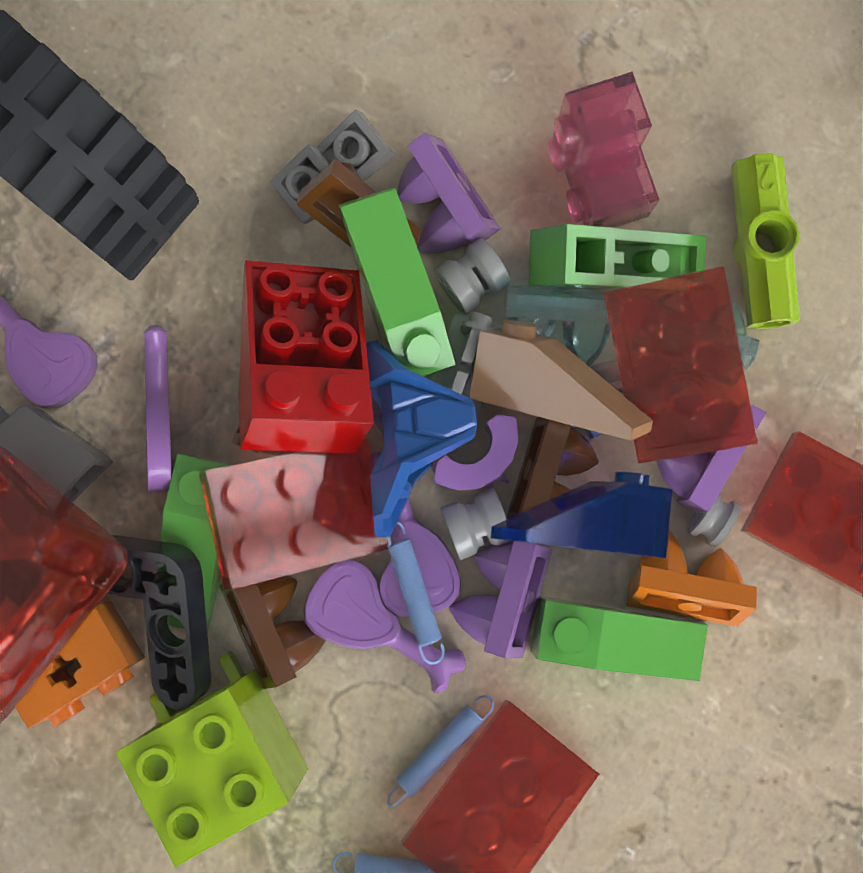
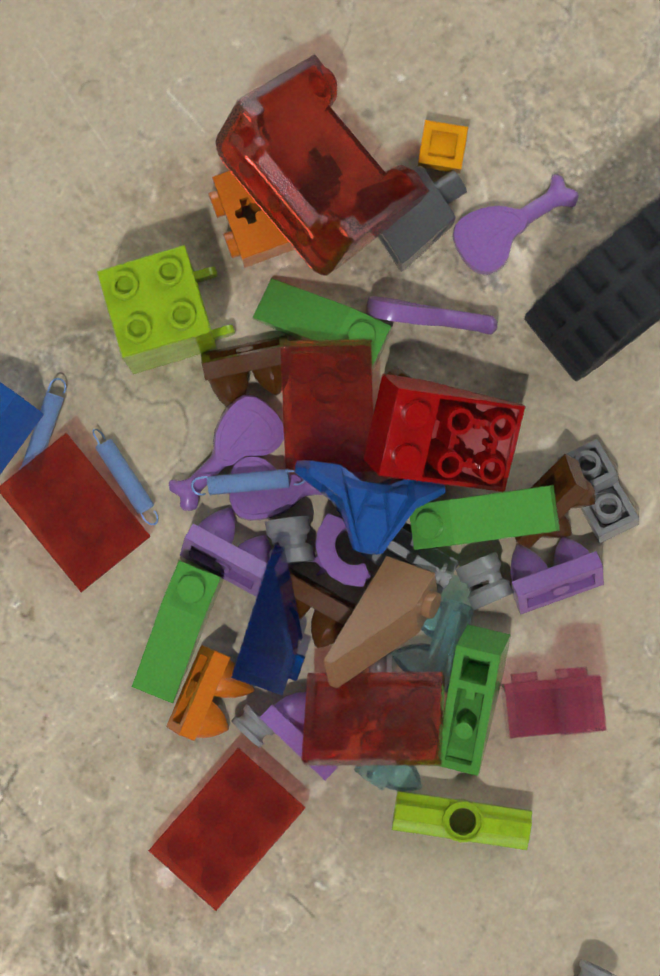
camera: 100 degrees right, 0 degrees up
(166, 597) = (281, 306): black beam -> none

